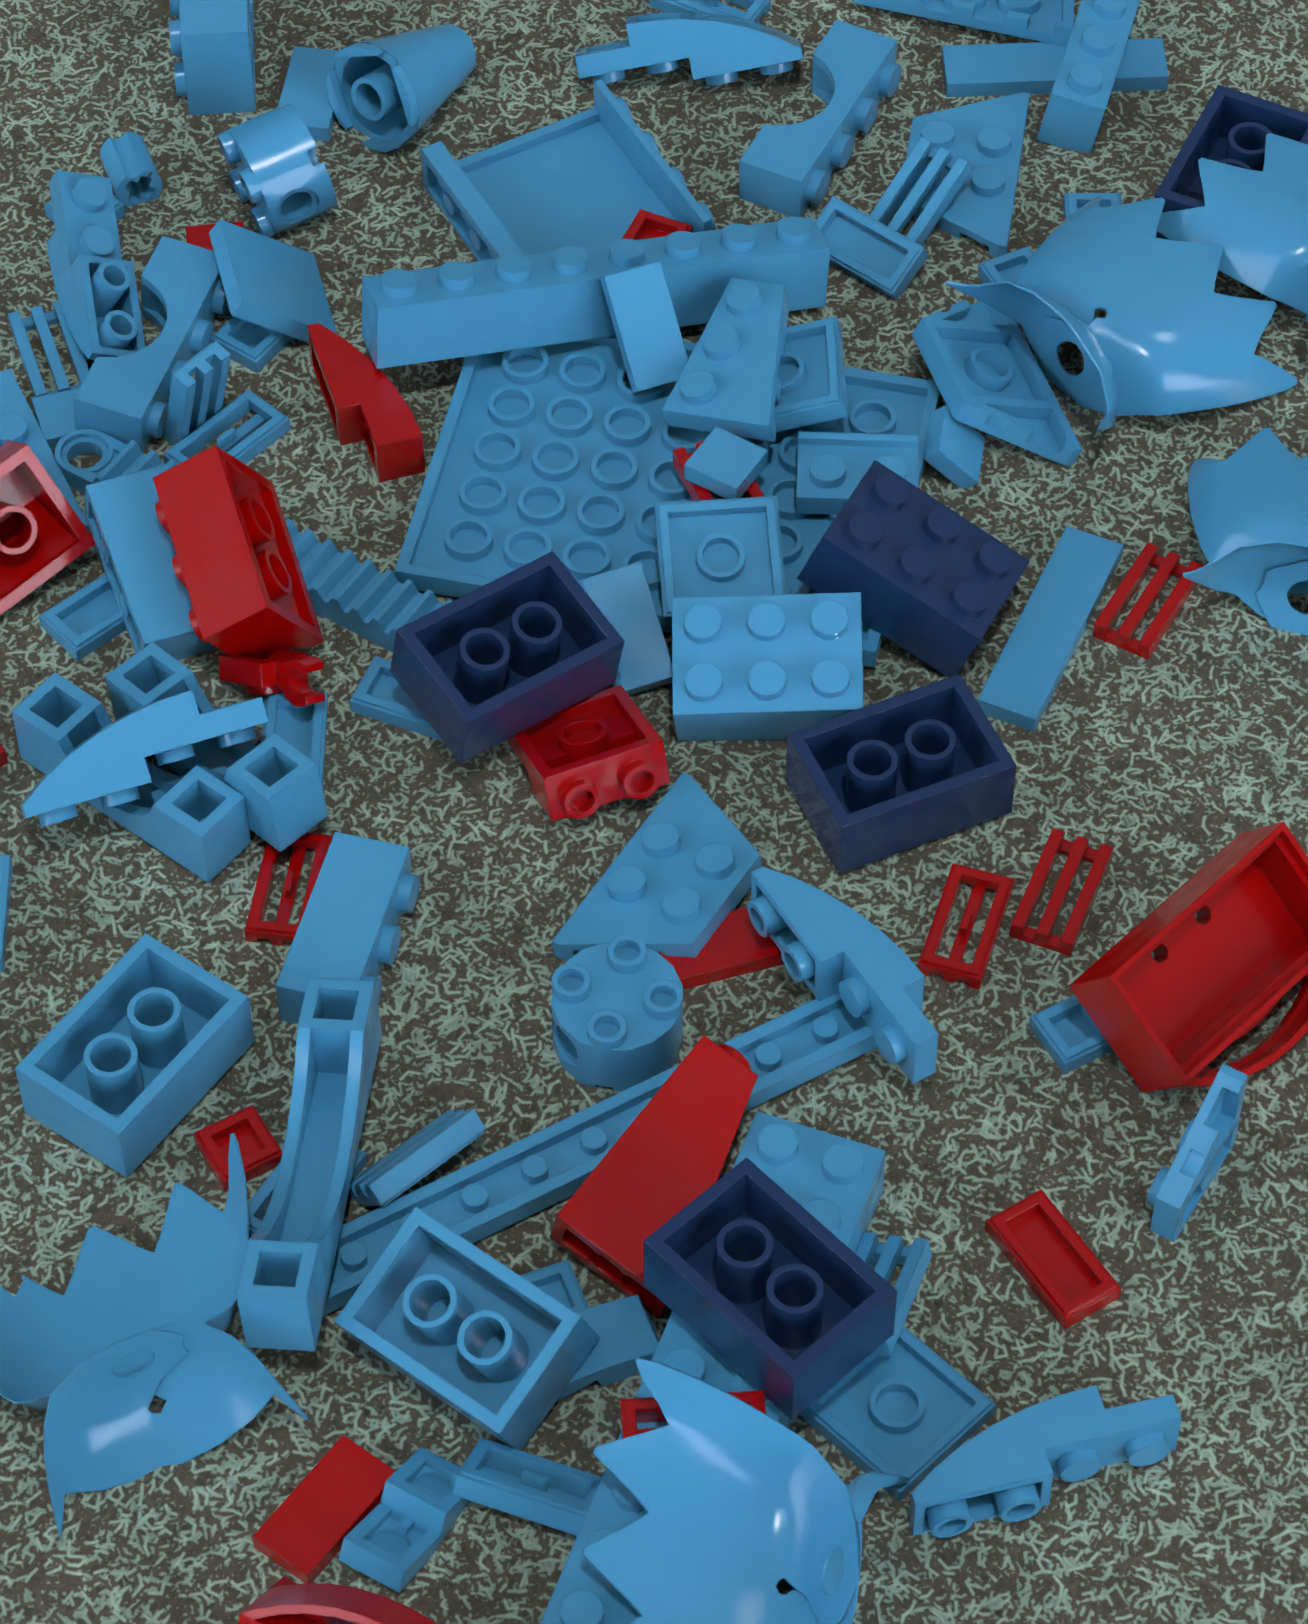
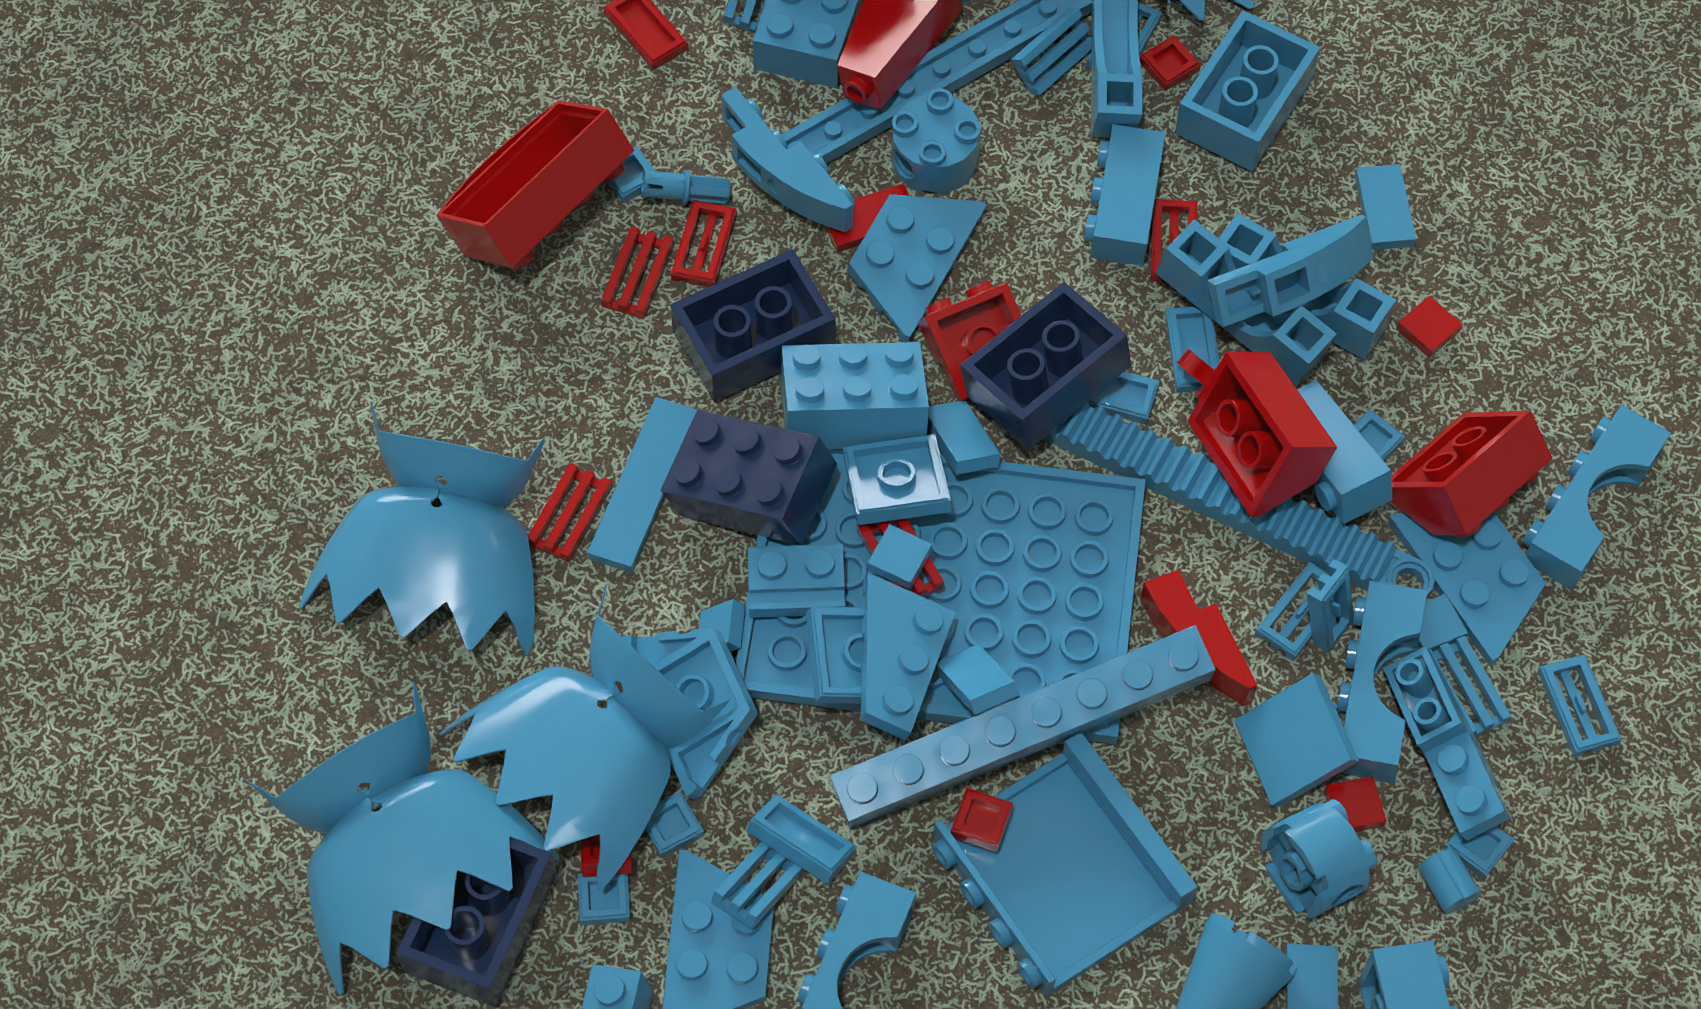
camera: 175 degrees right, 10 degrees up
(992, 990) = (685, 187): none -> dark azure axle
(1199, 1154) = (545, 80): dark azure wing -> none

